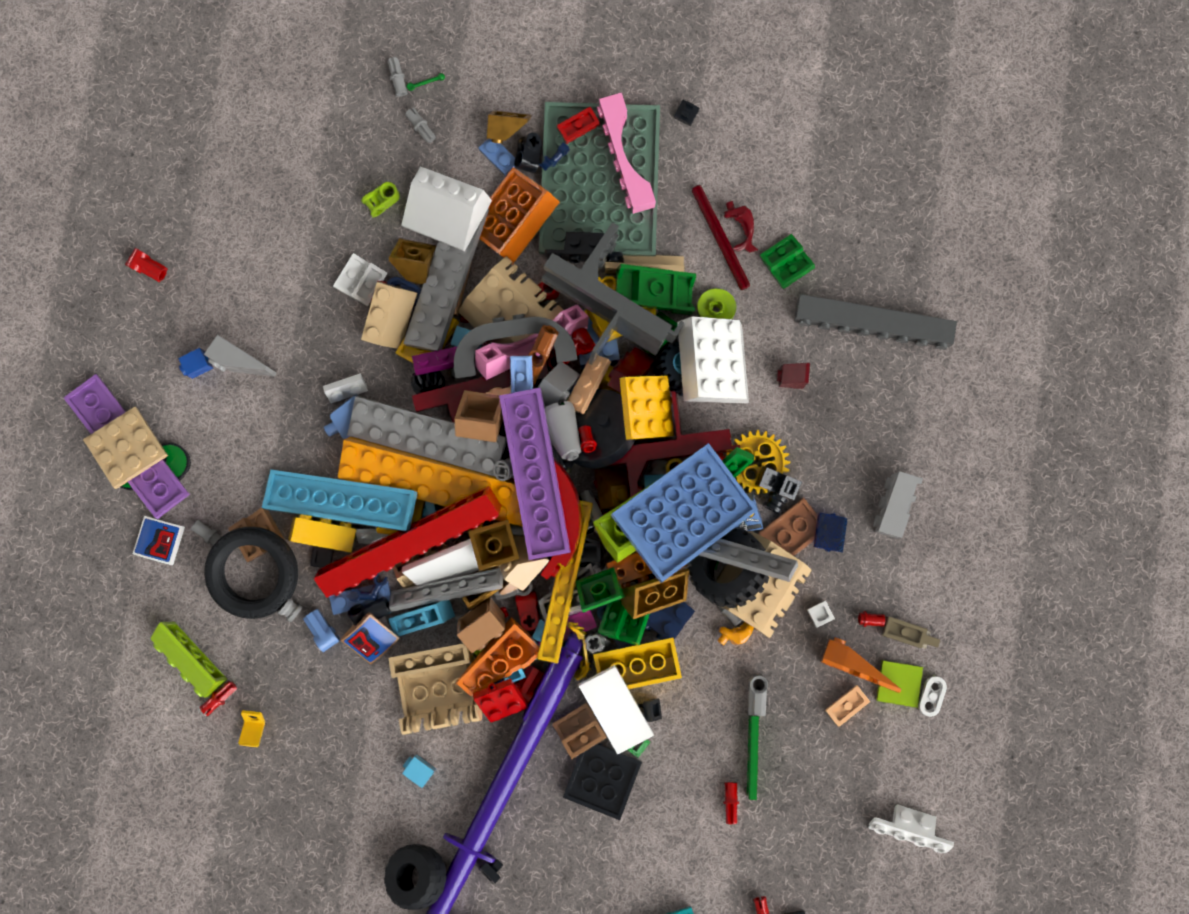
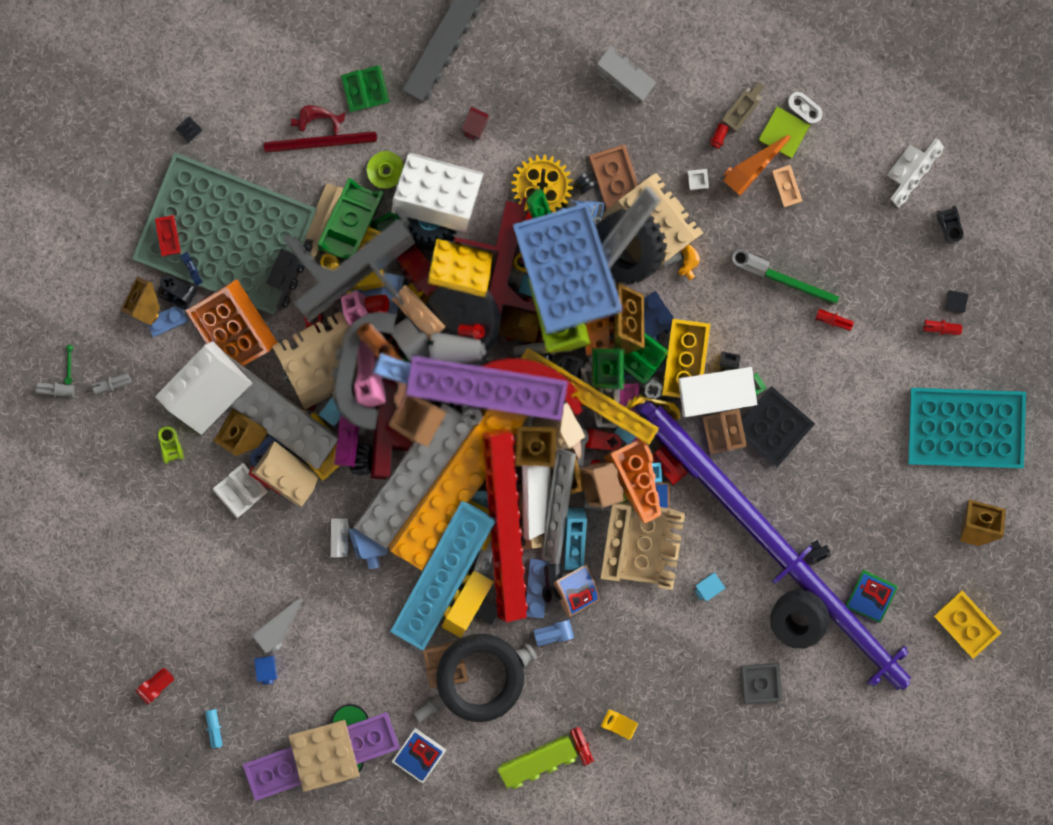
camera: 75 degrees left, 5 degrees up
(123, 334) = (213, 728): none -> medium azure axle
(340, 858) = (761, 683): none -> dark grey tile
(374, 592) = (539, 575): dark blue arm -> none
(500, 701) = (674, 491): red plate -> none
(638, 190) = (251, 203): bright pink arch -> none
(778, 483) = (568, 174): slope -> none
(830, 532) = (628, 143): clear blue piece -> none
(872, 887) = (950, 223): none -> black piece

